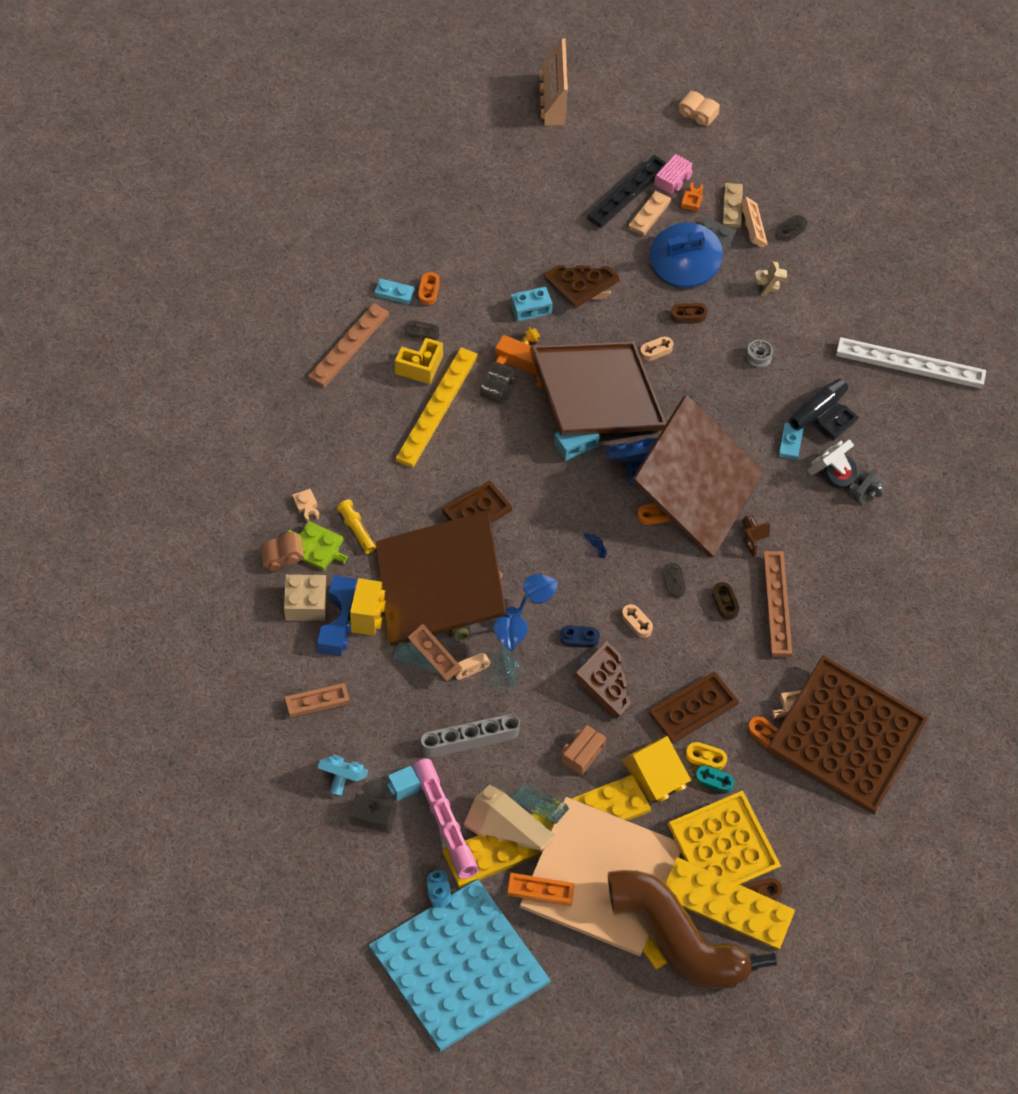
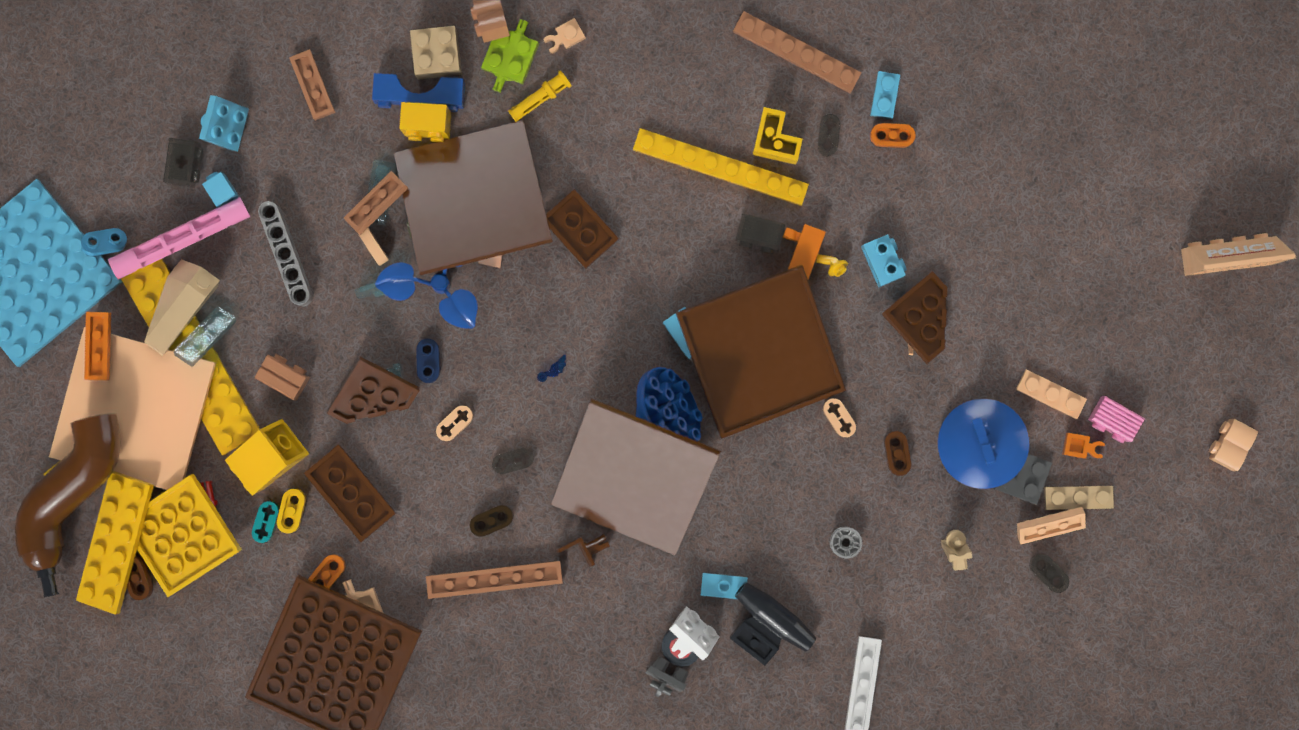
camera: 85 degrees right, 30 degrees up
(626, 192) = (1081, 364): black plate -> none

